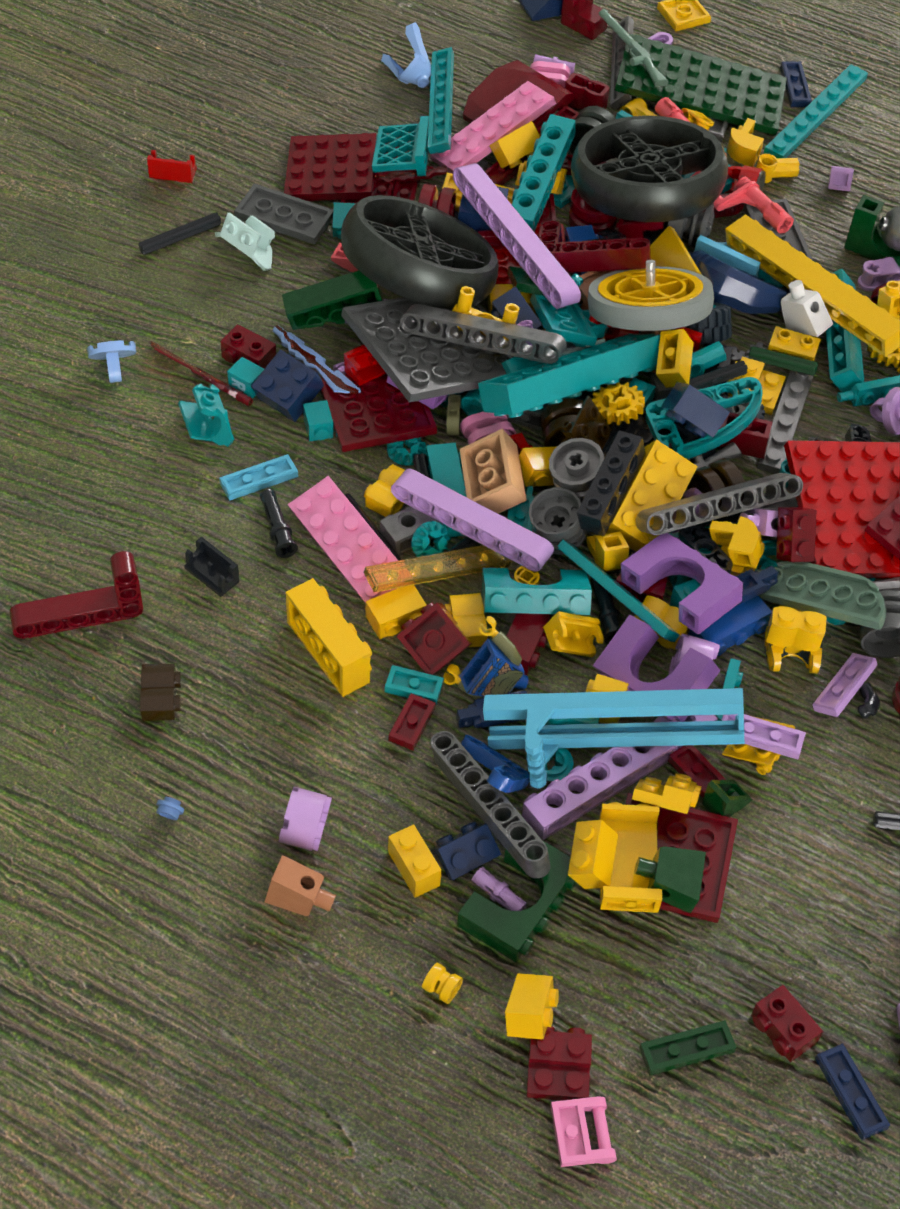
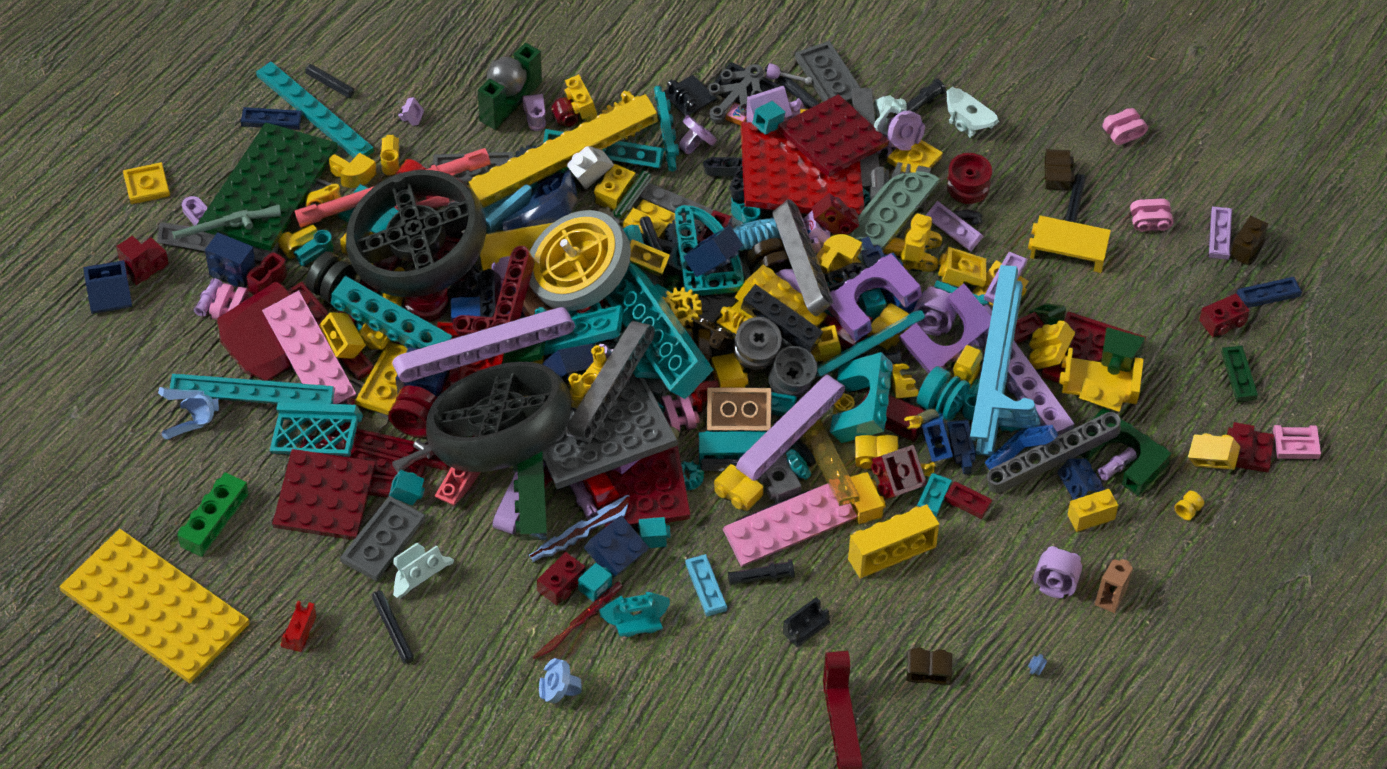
camera: 80 degrees left, 0 degrees up
(190, 76) = (154, 605): none -> yellow plate
(295, 95) = (212, 524): none -> green brick
(562, 670) = (943, 393): none -> teal wheel
(596, 58) = (230, 260): none -> dark blue brick
(750, 461) = (755, 232): none -> medium azure gear
(772, 692) = (962, 266): none -> yellow plate
(858, 820) = (1070, 240): none -> yellow panel
(860, 118) = (329, 80): none -> black axle

